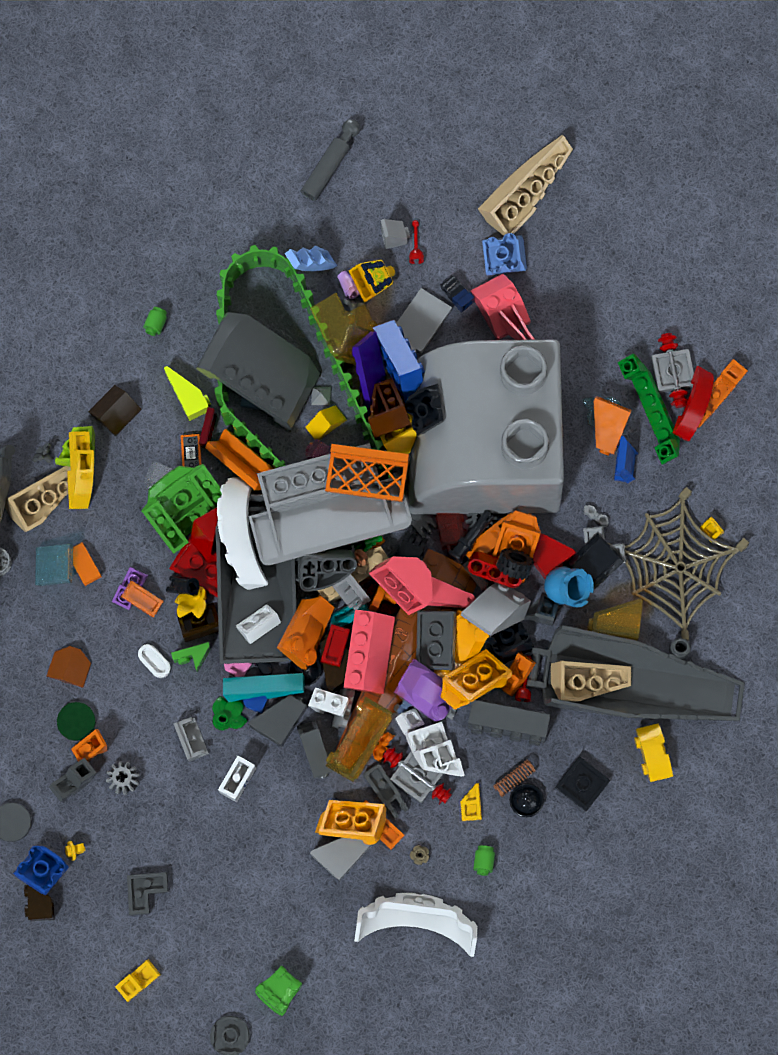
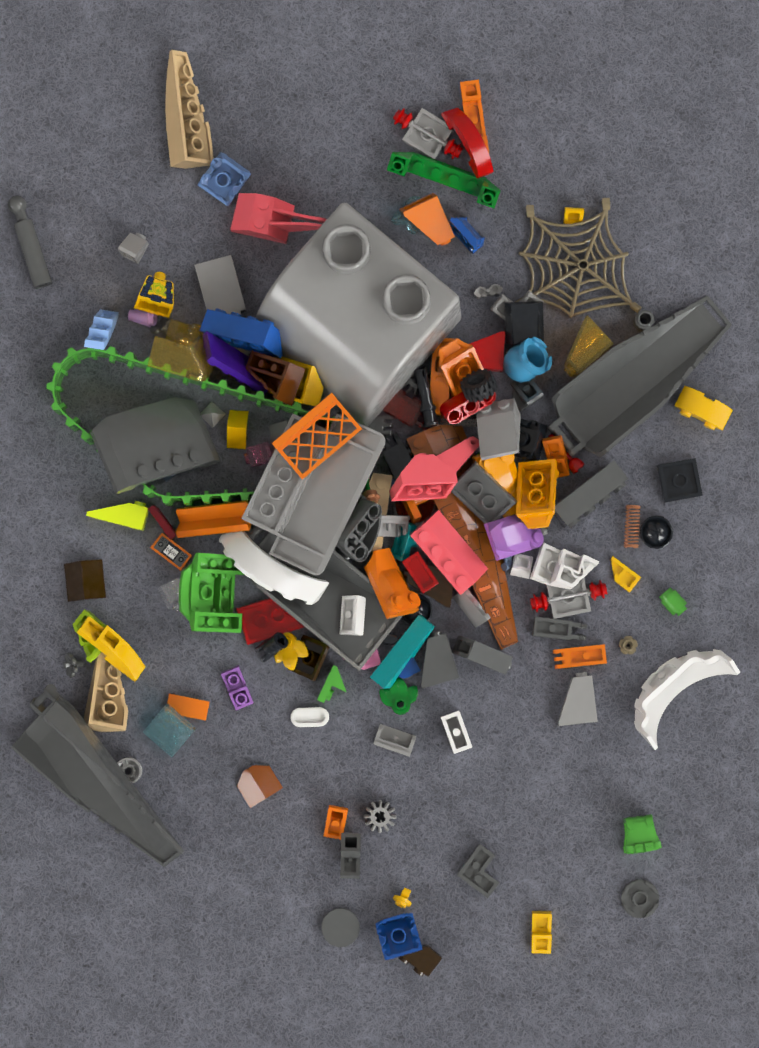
camera: 55 degrees left, 10 degrees up
(76, 721) = (305, 814): dark green tile -> none
(142, 599) = (254, 686): orange tile -> none
(155, 321) = (41, 489): bright green brick -> none
(204, 531) = (247, 595): red slope -> none
(329, 702) = (459, 614): white bracket -> none
(353, 820) = (563, 674): light orange slope -> none
(360, 740) = (509, 618): clear yellow windscreen -> none
(380, 749) = (524, 607): orange piece -> none
(416, 253) = (163, 245): red hinge -> none
(425, 409) = (307, 349): black slope -> none
(457, 293) = (223, 241): leg -> none
(585, 680) = (606, 413): tan wedge -> none

